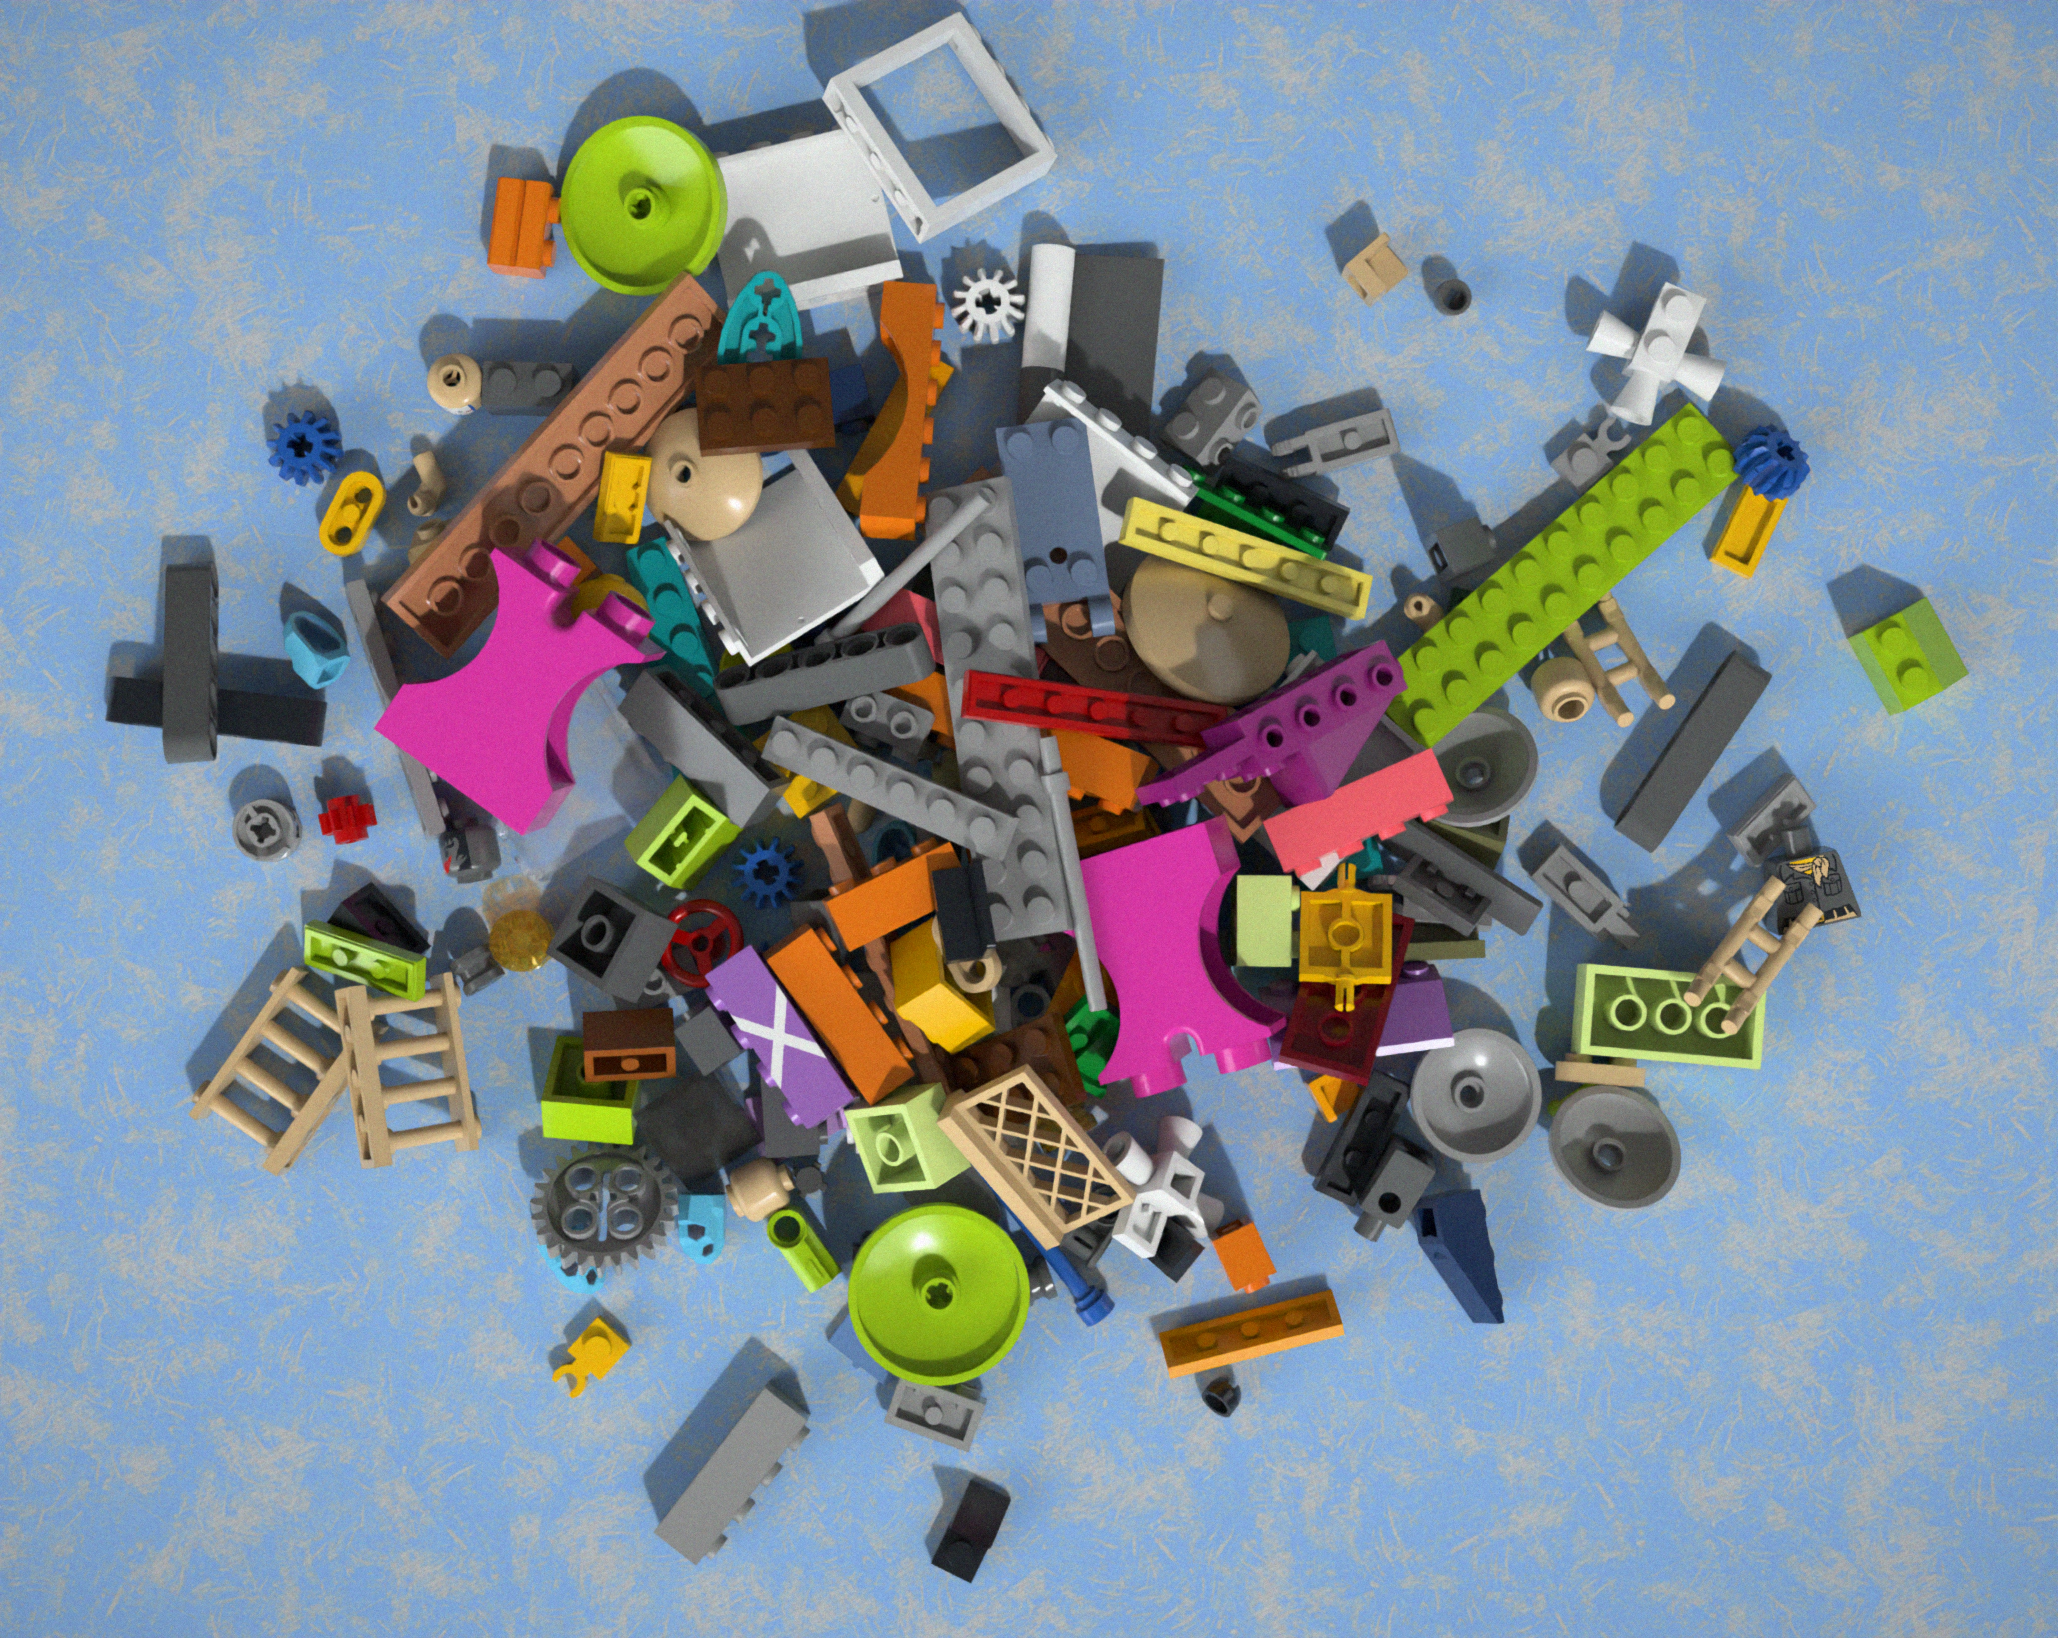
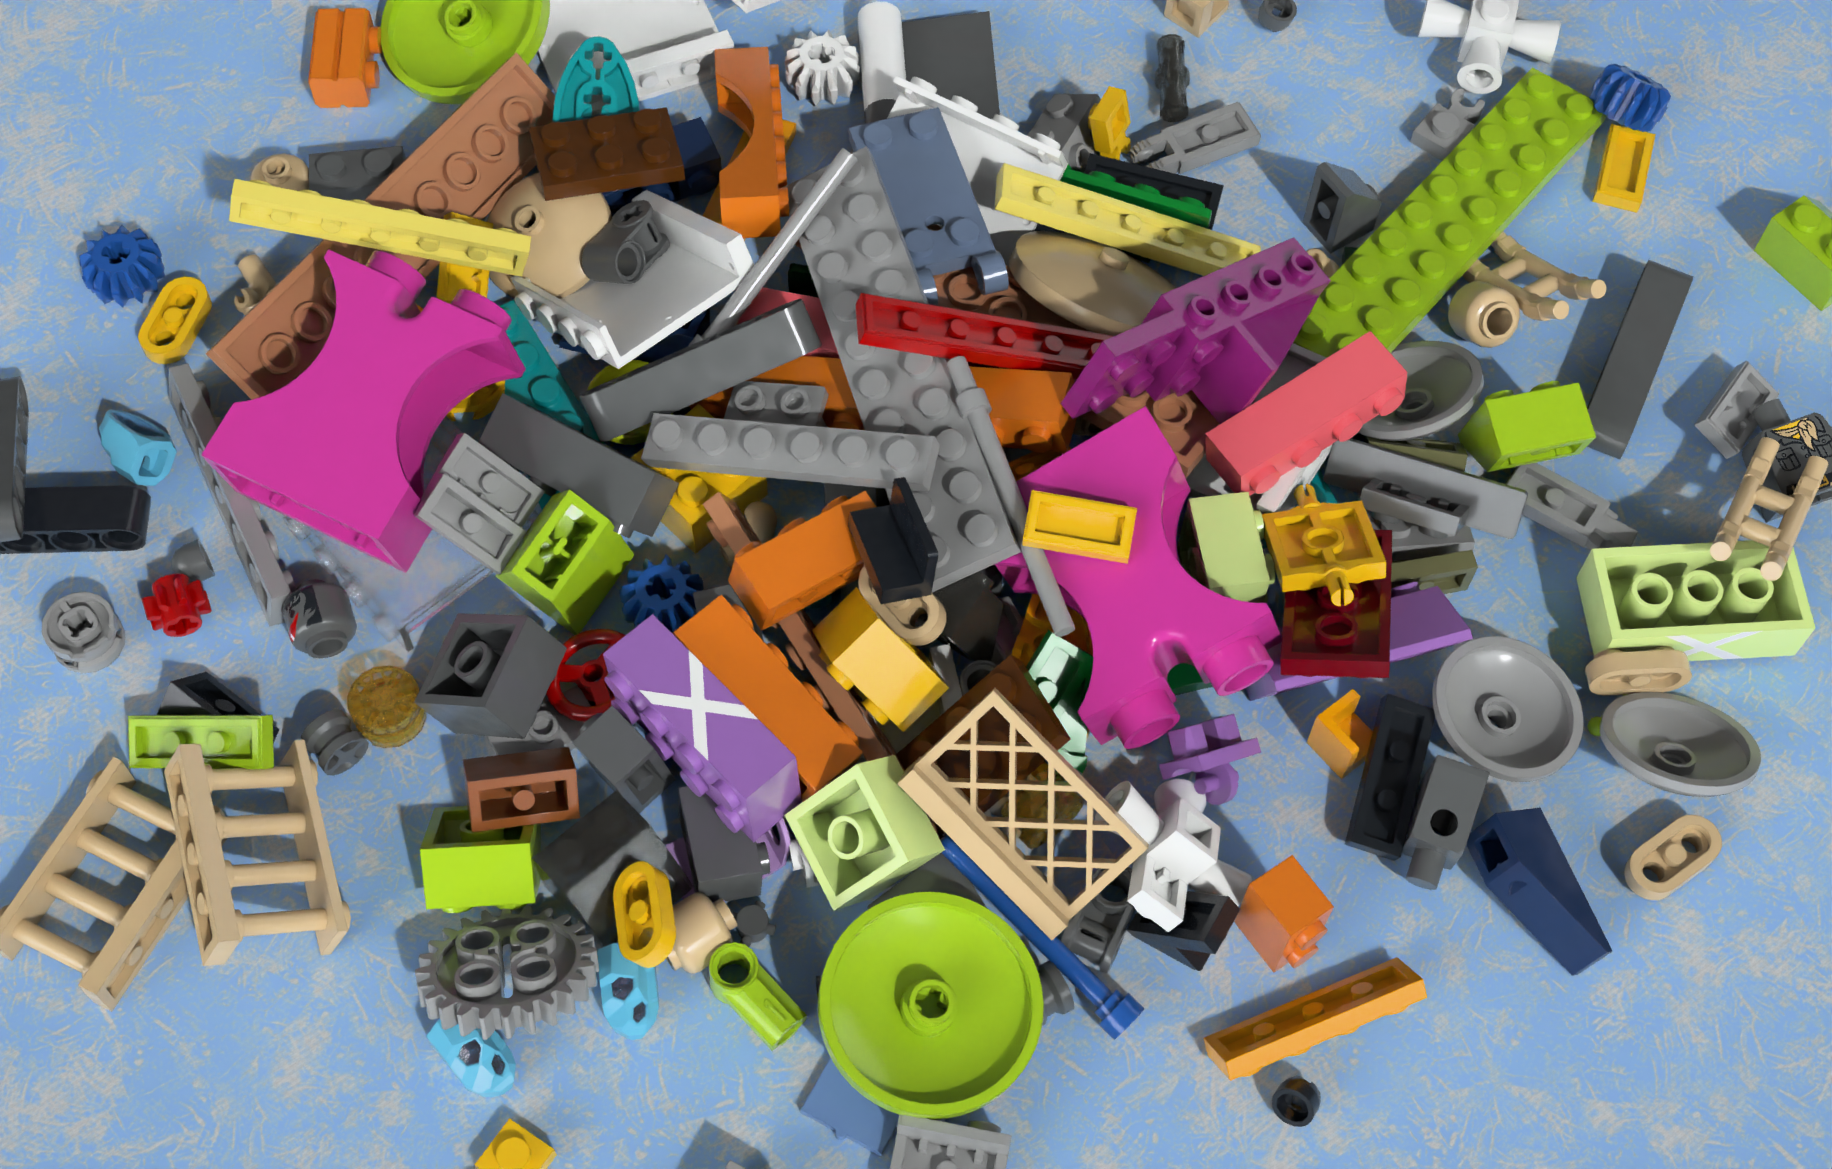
camera: 10 degrees left, 25 degrees down
(362, 774) = (192, 561): none -> dark grey hinge
(526, 480) = (378, 227): none -> light yellow plate
(613, 785) = (478, 502): none -> light grey slope
(718, 1181) = (644, 914): none -> yellow plate
(773, 514) = (625, 246): none -> dark grey piece
(1125, 925) = (1079, 526): none -> yellow tile
(1211, 1106) = (1208, 751): none -> medium lavender hips
(1252, 429) = (1109, 122): none -> yellow plate
(1331, 362) = (1172, 78): none -> clear smoke pin
(1566, 828) = (1528, 426): none -> lime slope
(1582, 1240) = (1670, 860): none -> tan plate

